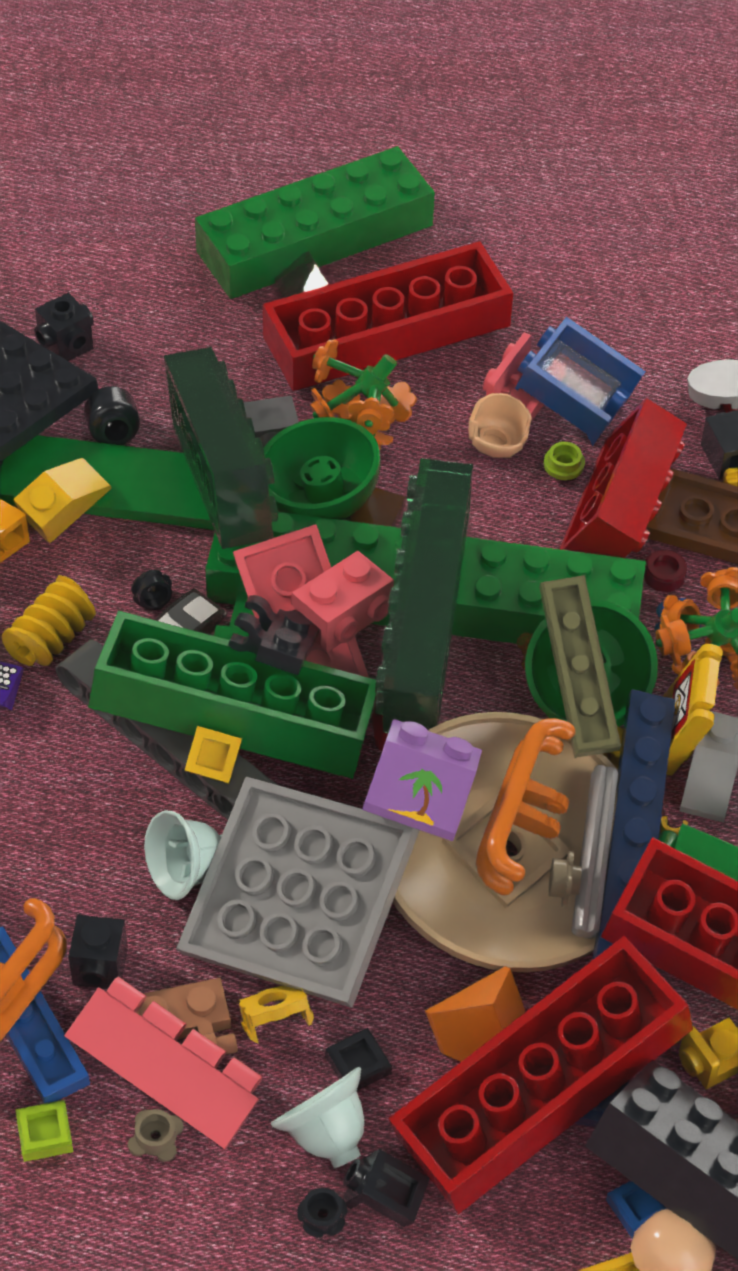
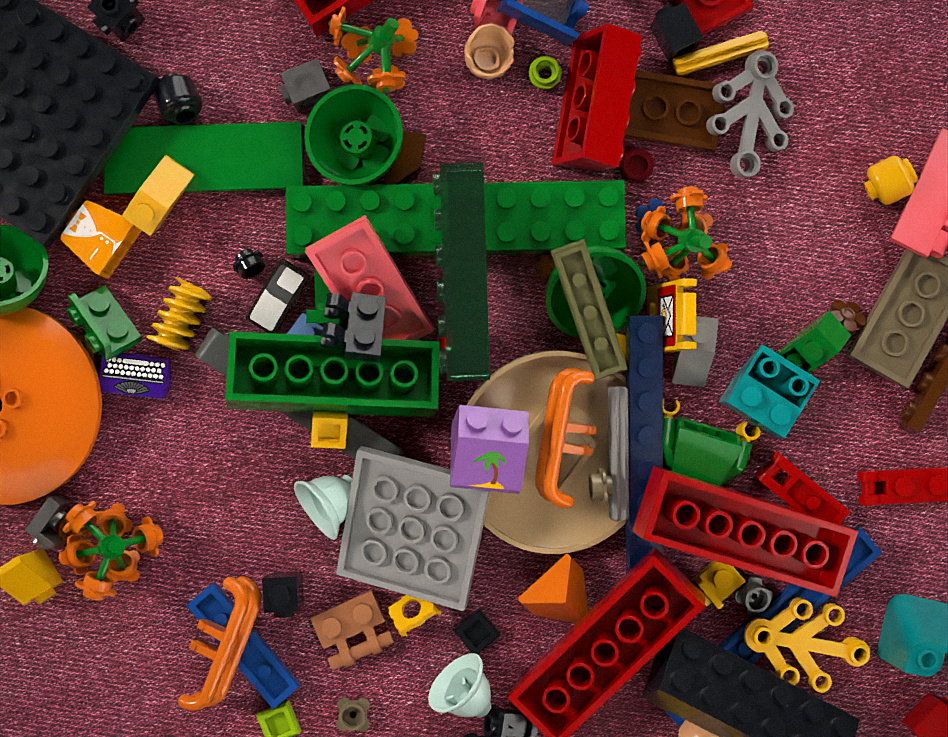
camera: 10 degrees left, 35 degrees up
(171, 1073) = (339, 668): coral windscreen -> none
(220, 448) = (271, 141): clear green brick -> none
(345, 599) = (400, 277): coral bracket -> none

